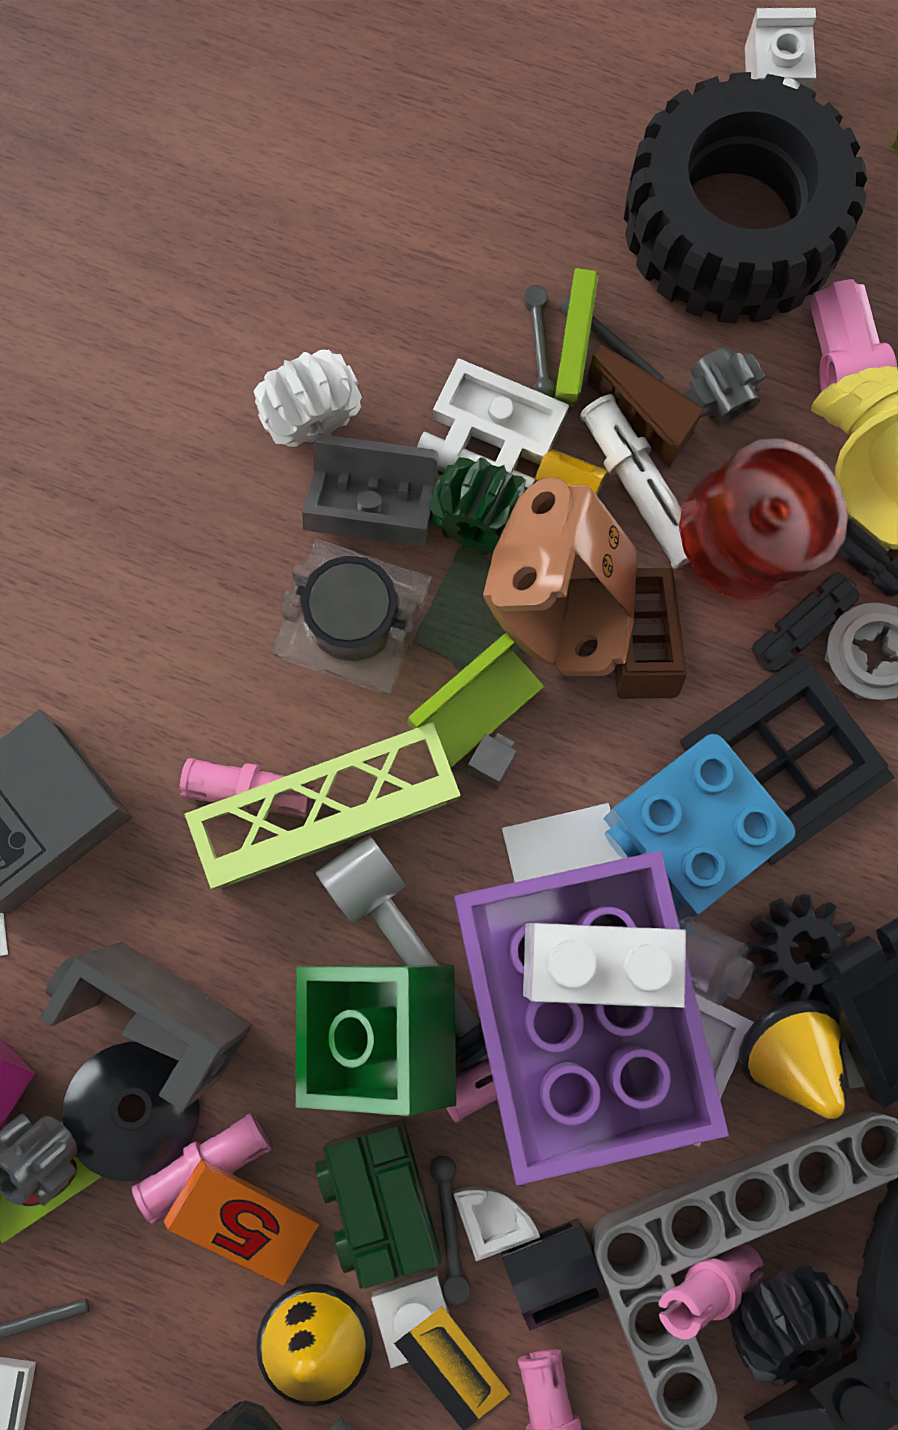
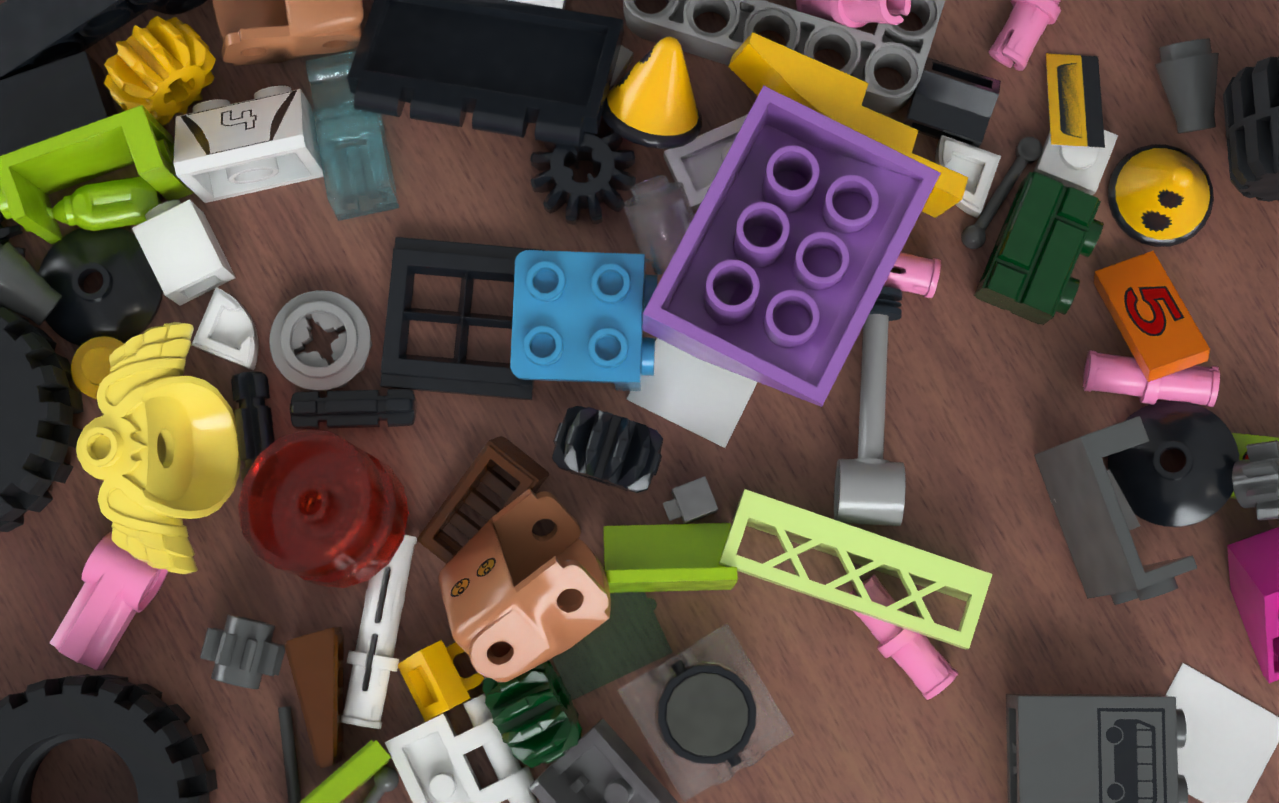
camera: 140 degrees left, 5 degrees up
(376, 1038) = (953, 362): green brick -> none
(591, 740) = (607, 449): none -> black gear
(604, 965) = (760, 264): white brick -> none
(655, 1182) = (841, 99): none -> yellow slope

